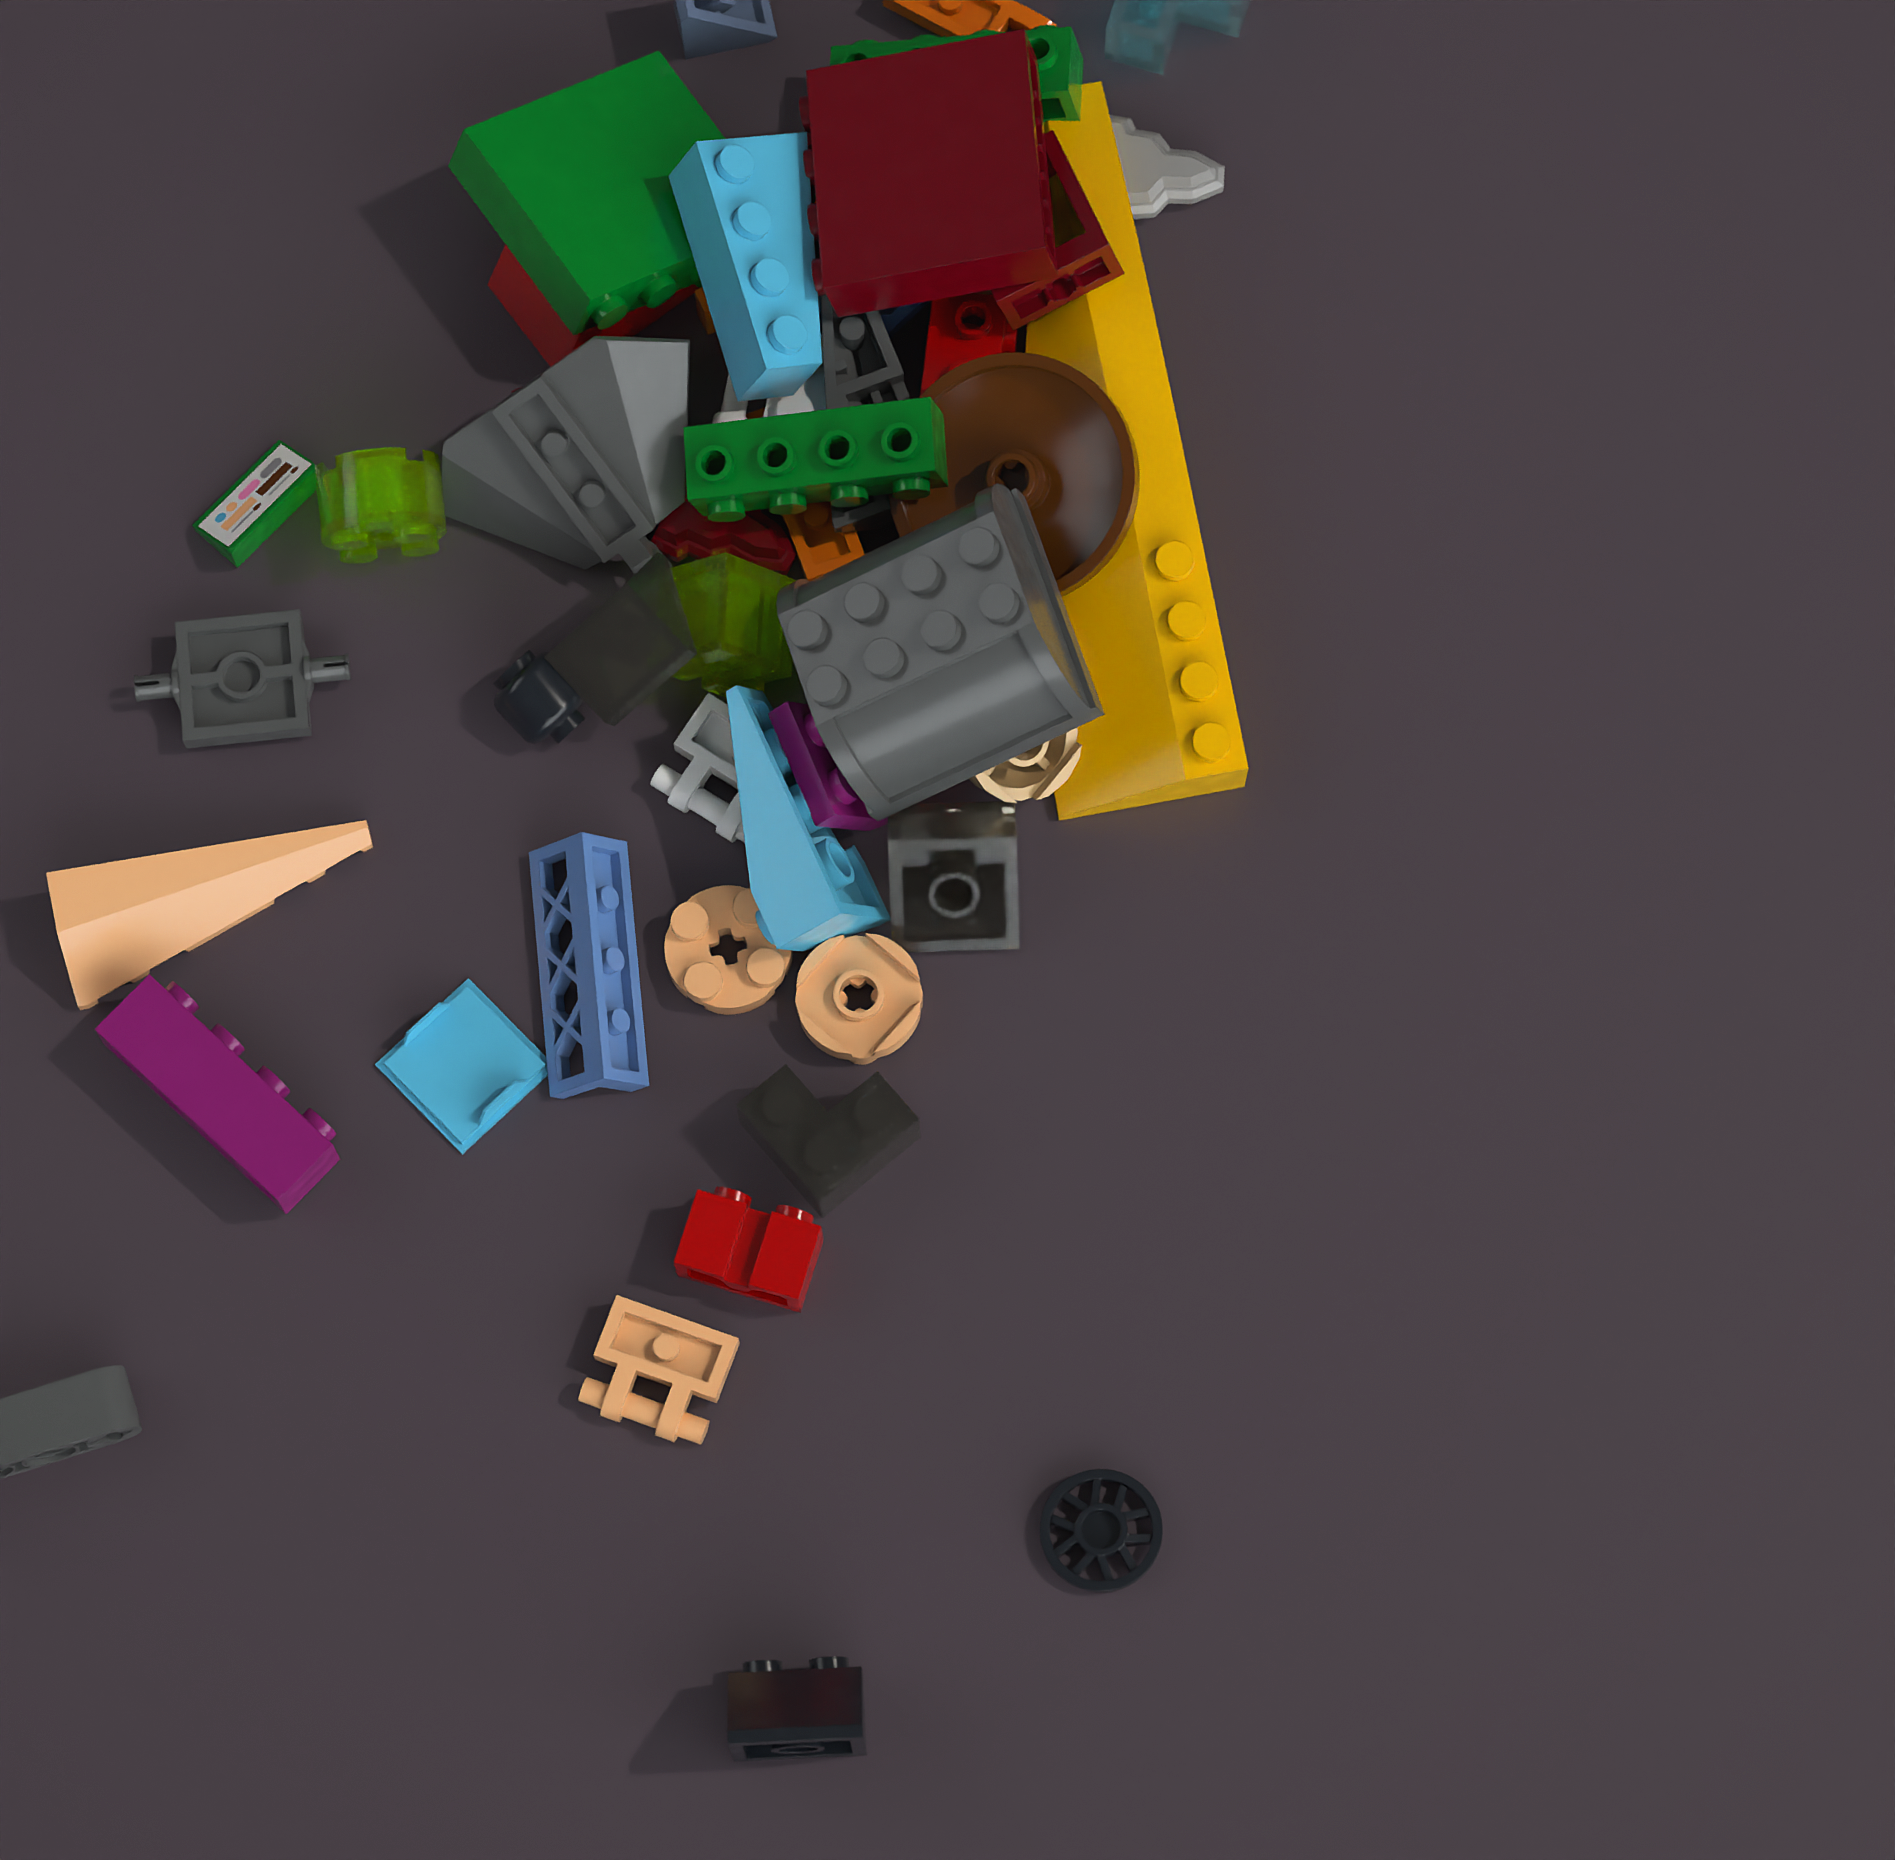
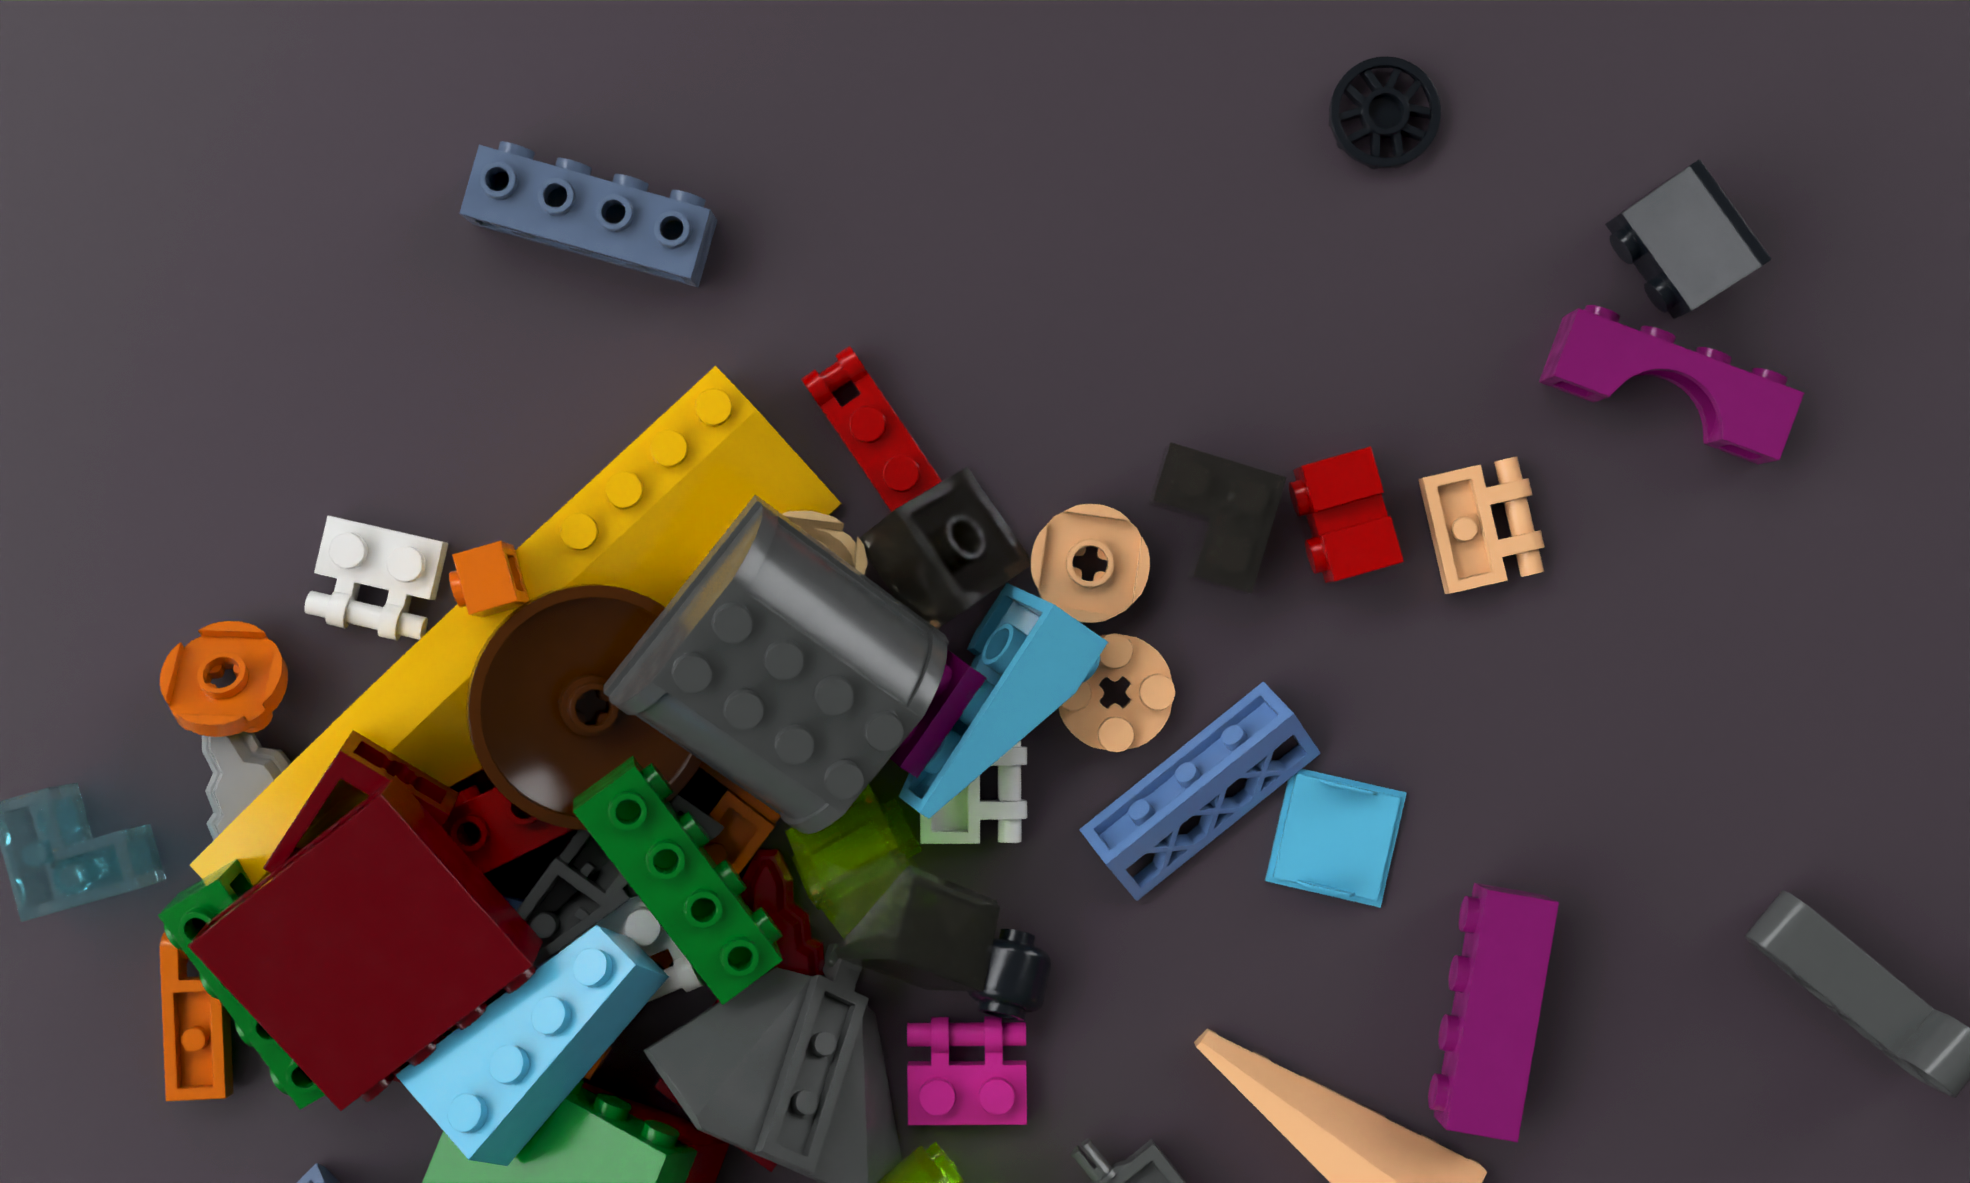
camera: 125 degrees left, 15 degrees up
(463, 605) = (967, 1090): none -> dark pink plate
(606, 1675) = (1738, 408): none -> magenta arch
(1105, 883) = (872, 431): none -> red plate
(1177, 455) = (488, 579): none -> orange plate
(1212, 211) = (228, 710): none -> orange plate
(1268, 398) = (379, 559): none -> white plate
(1461, 754) = (589, 214): none -> sand blue brick

